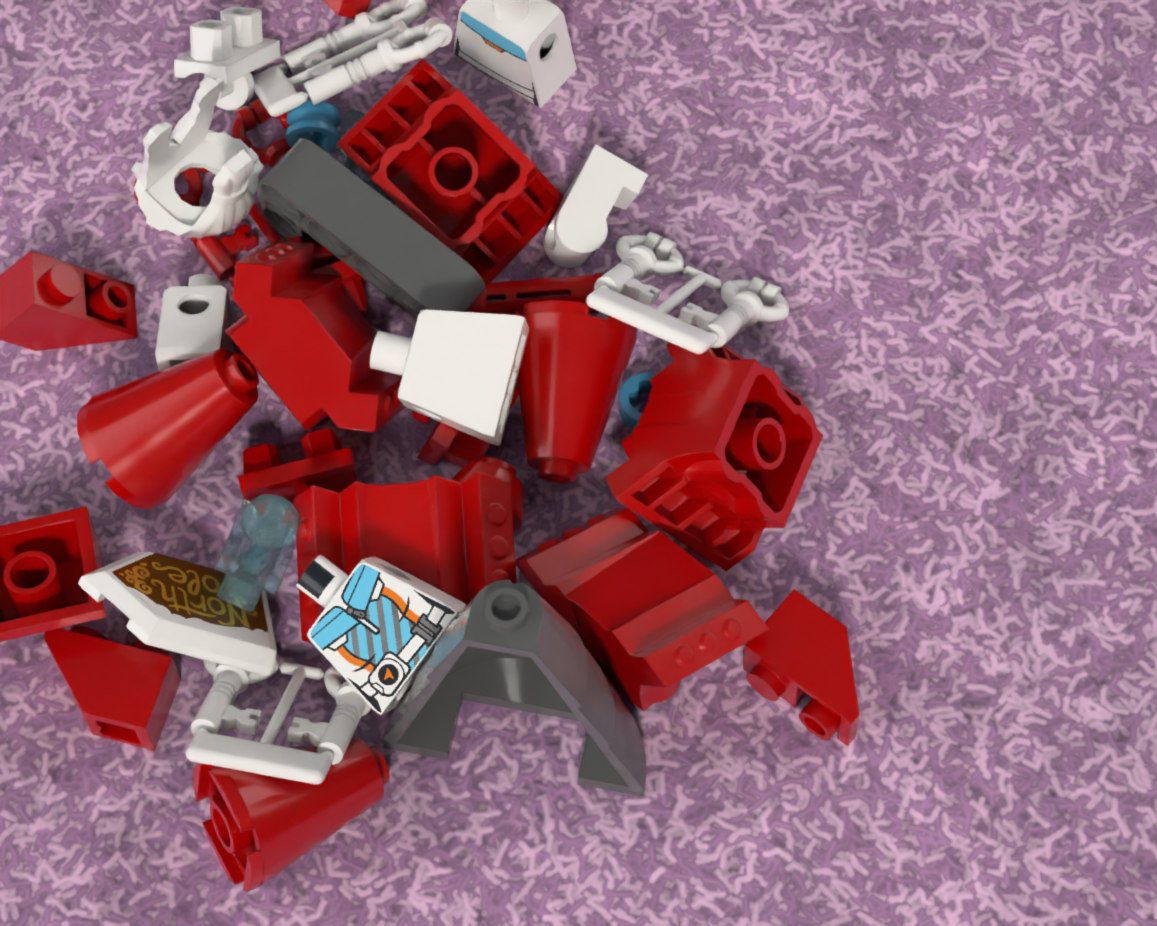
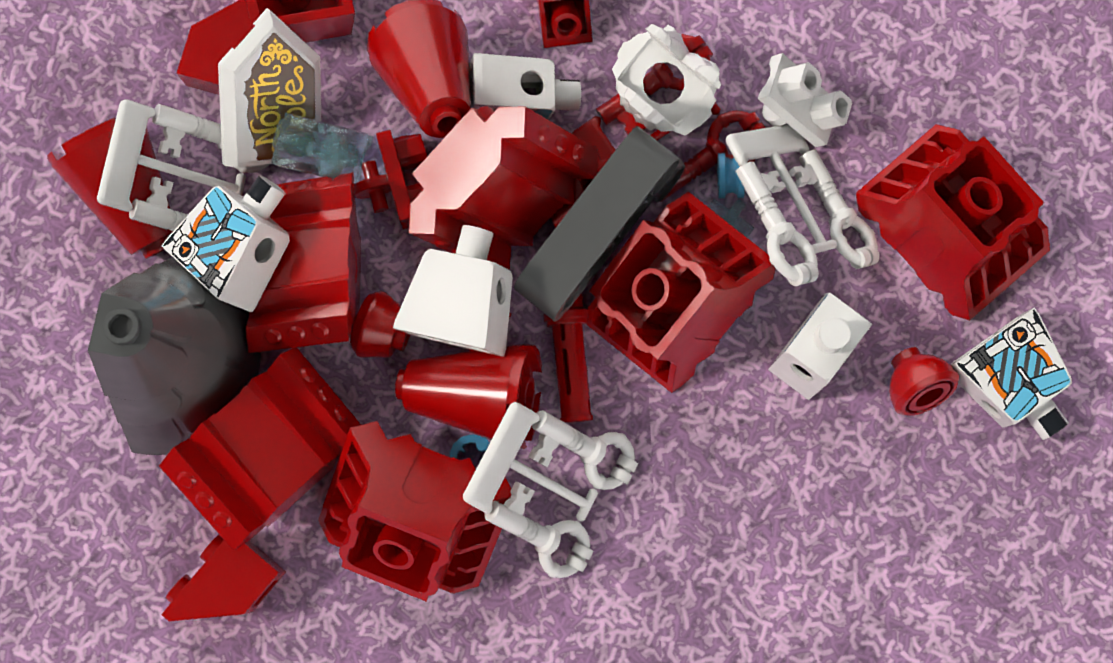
camera: 85 degrees right, 20 degrees up
(580, 220) = (652, 406): white leg -> none

